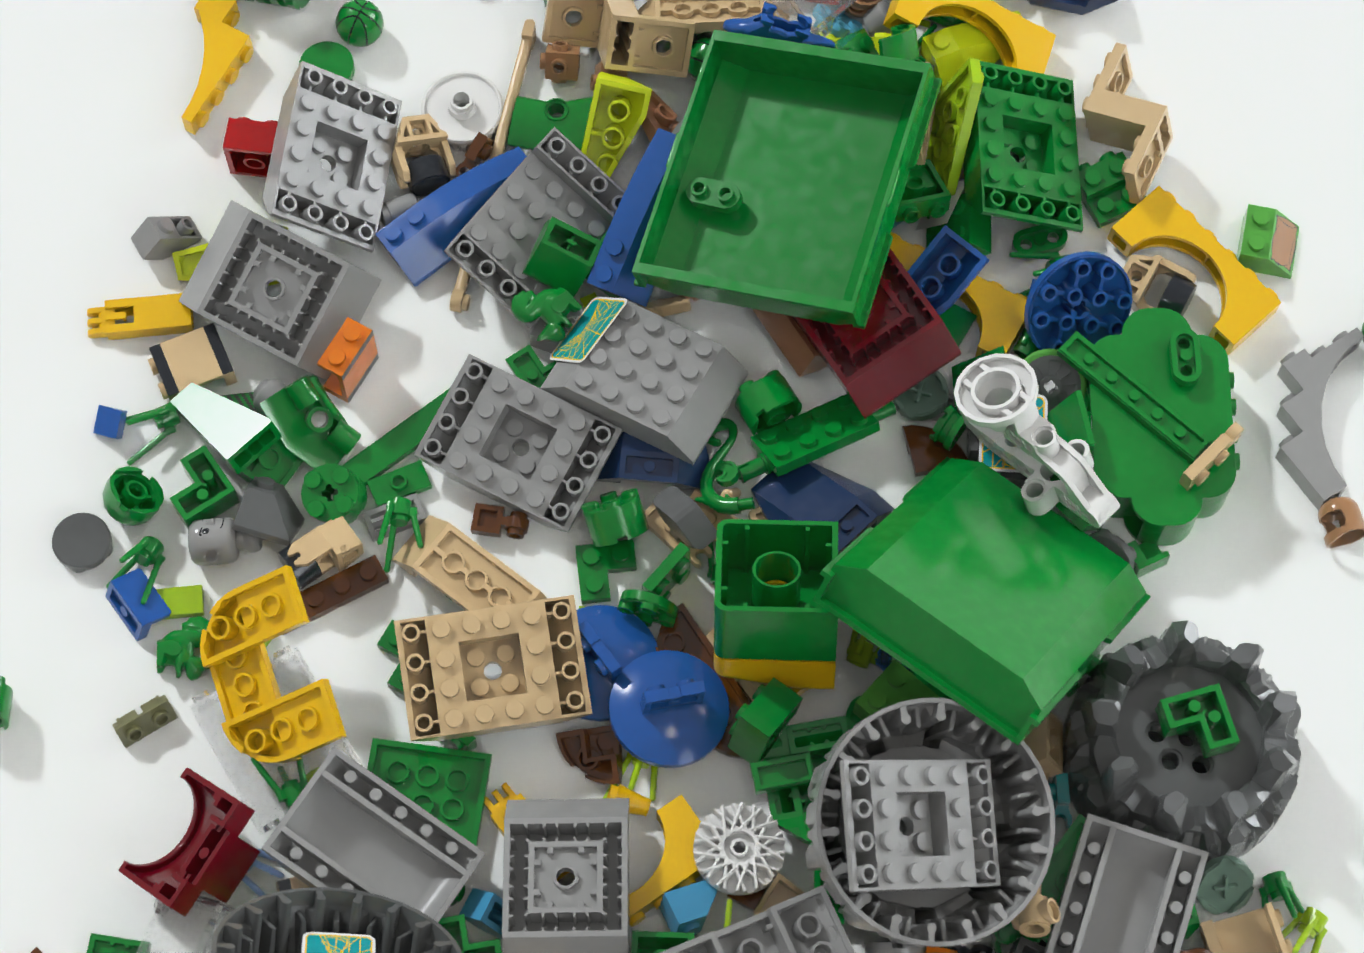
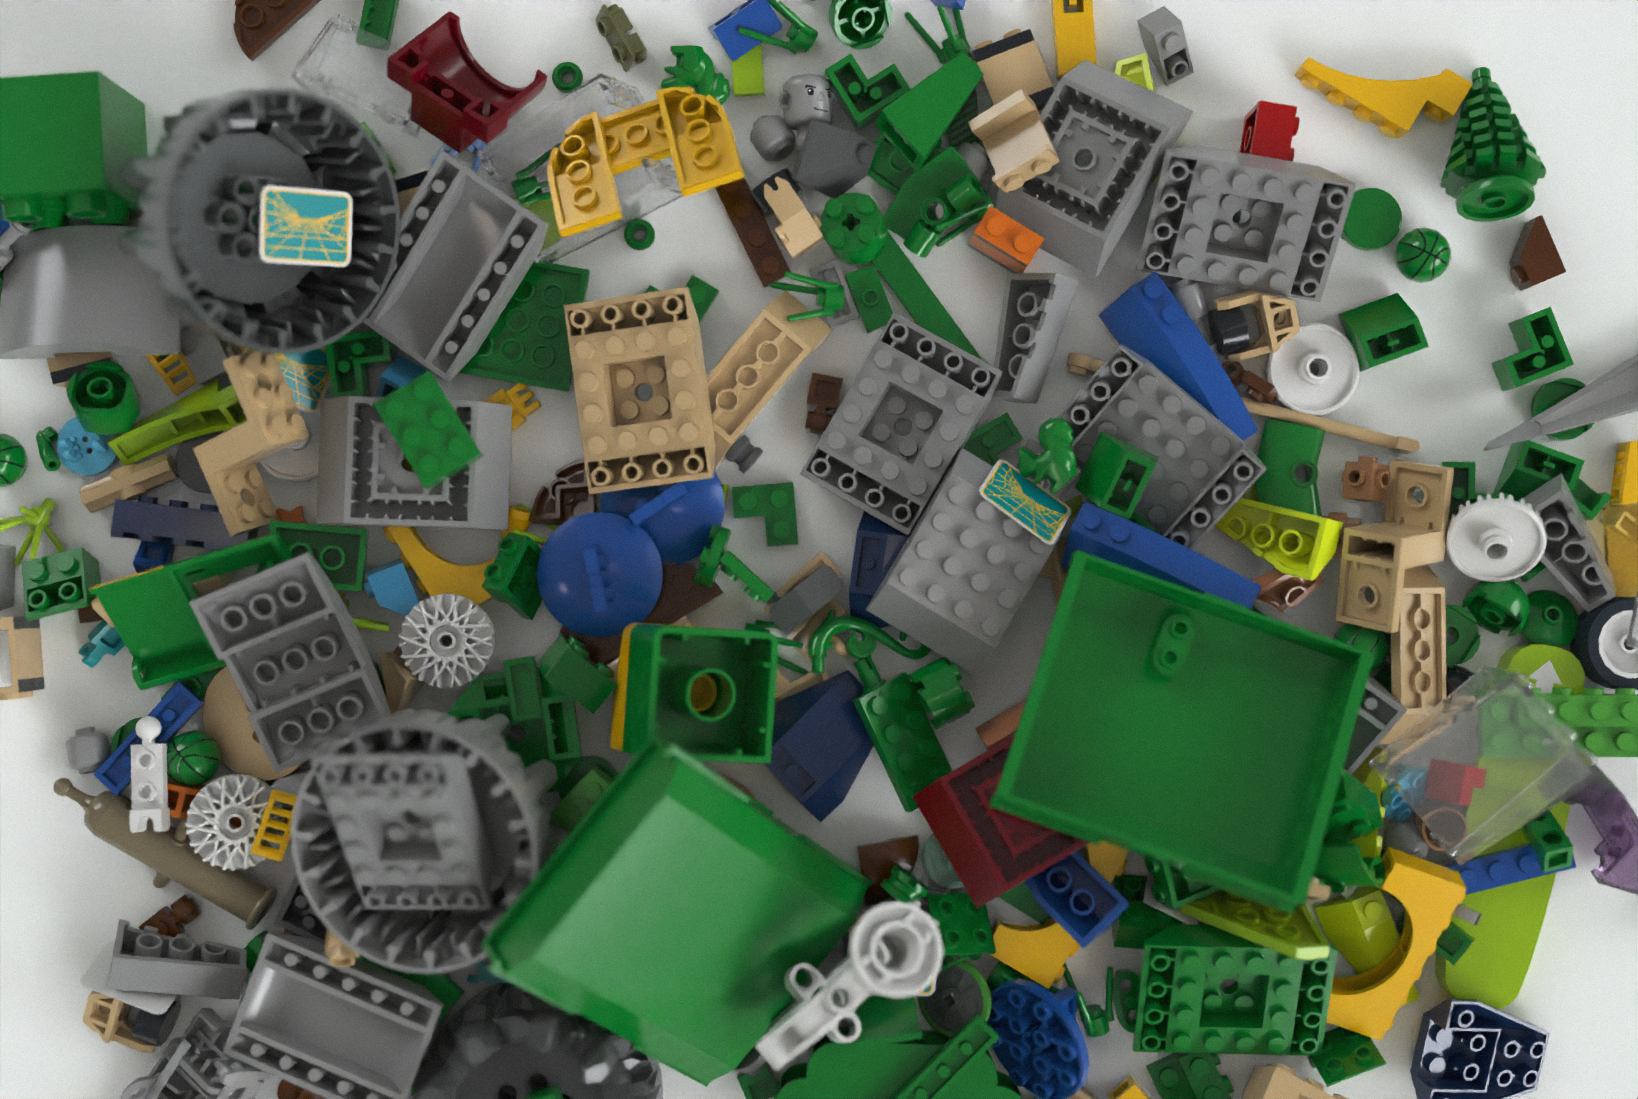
camera: 85 degrees right, 20 degrees up
(176, 763) = (563, 69): none -> green plate
(244, 569) = (772, 138): none -> light grey head
(257, 350) = (1015, 141): none -> tan panel
(342, 687) = (632, 228): none -> green plate
(427, 51) = (1383, 331): none -> green slope
(429, 338) = (1029, 332): none -> light grey wedge
(534, 853) = (428, 430): none -> green brick
(551, 585) = (744, 454): none -> dark grey wheel
(615, 517) = (813, 525): green brick -> none
(672, 786) = (514, 575): none -> green plate
(774, 27) = (1380, 725): blue animal -> none
(1071, 61) = (1345, 1056): none -> green hinge

